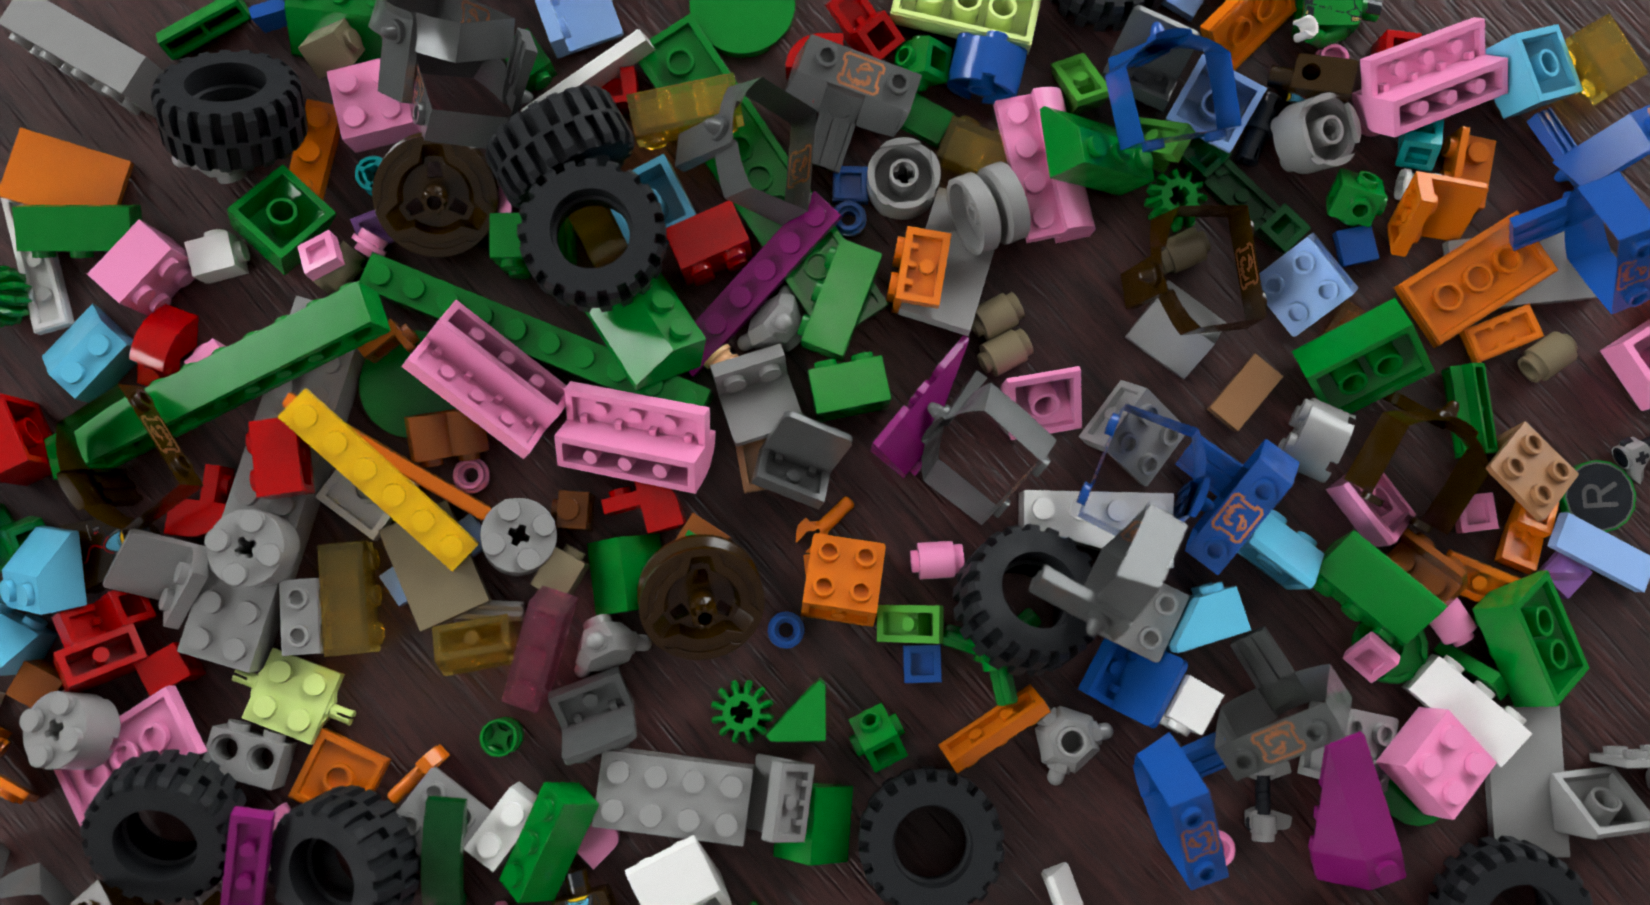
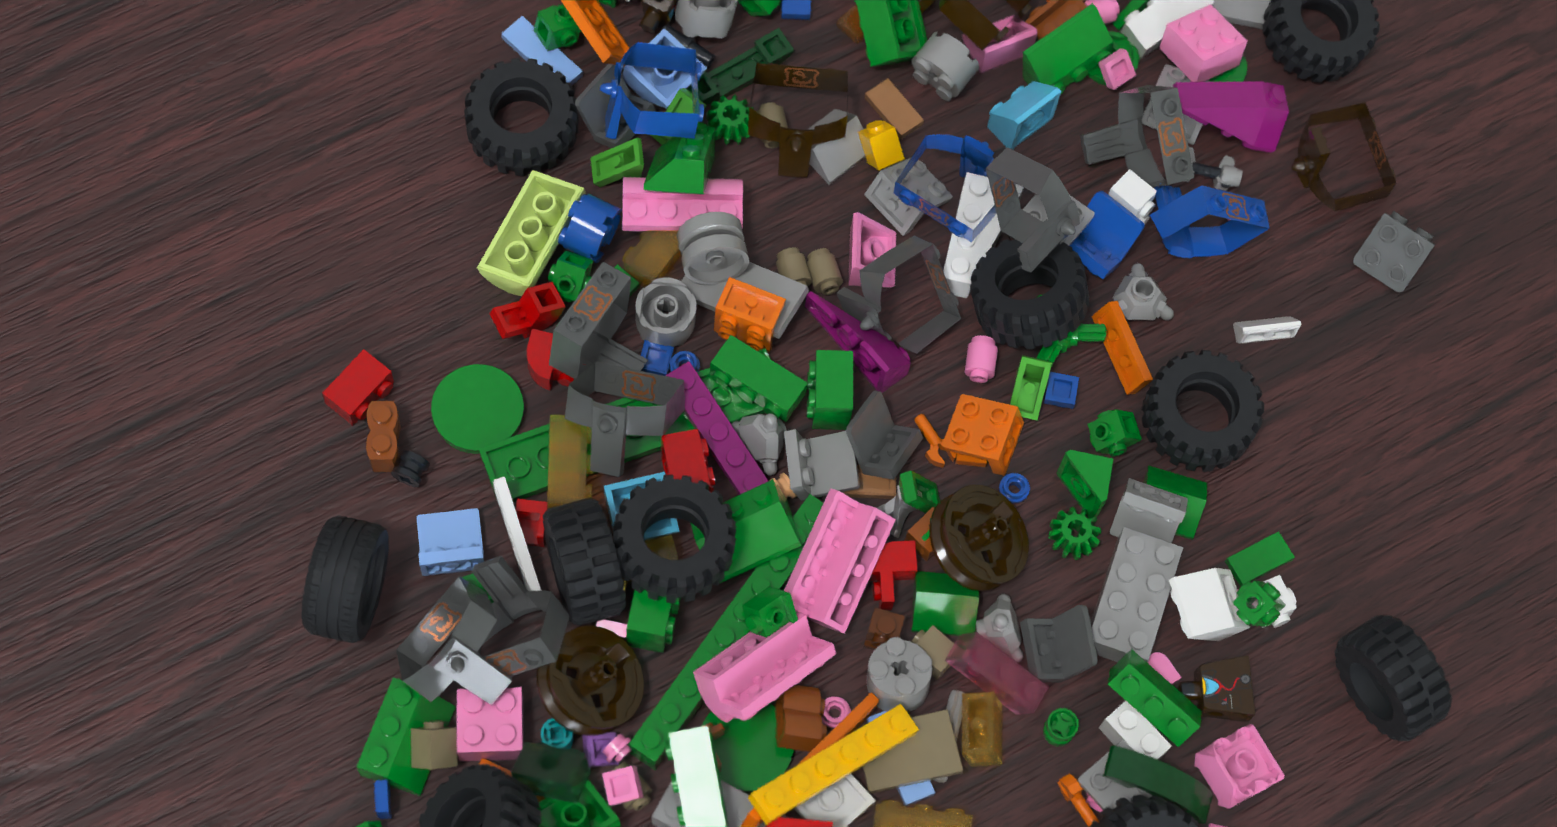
camera: 85 degrees left, 15 degrees down
(317, 194) = (552, 771): none -> clear green brick
(548, 369) = (769, 611): none -> green brick
(738, 511) = (912, 494): none -> green piece
(1186, 384) = (881, 144): none -> yellow brick
(1209, 616) = (1071, 165): medium azure slope -> none
(1243, 498) = (983, 115): blue piece -> none
(1305, 285) = (821, 42): light blue bracket -> none

